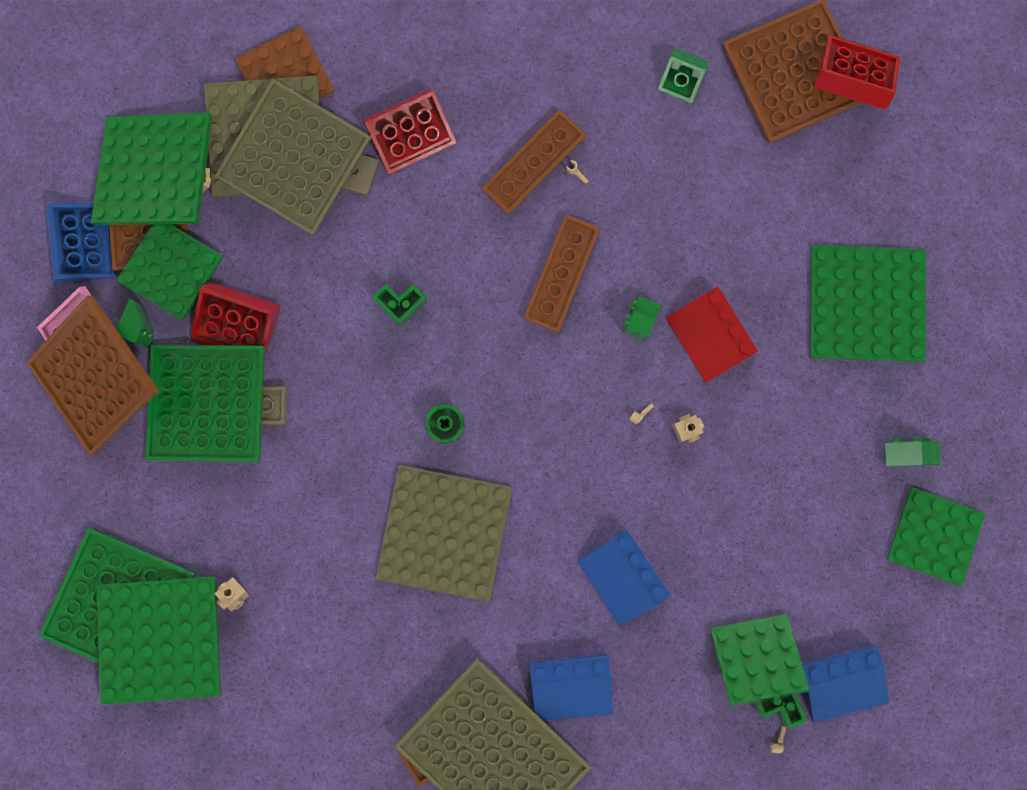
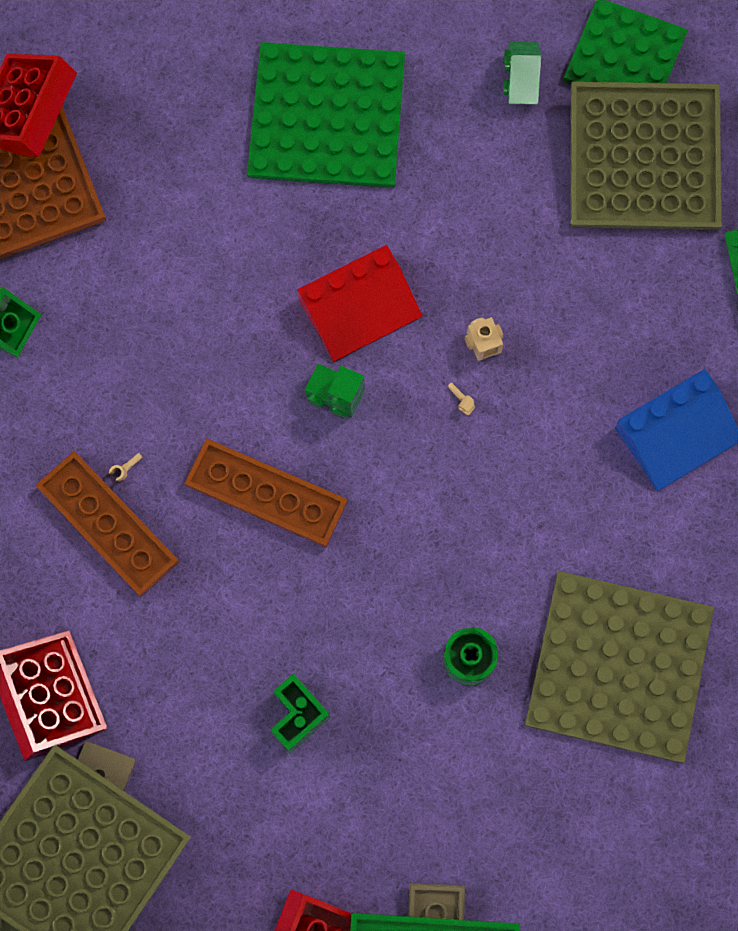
camera: 85 degrees left, 10 degrees down
(848, 551) = (645, 156): none -> olive plate

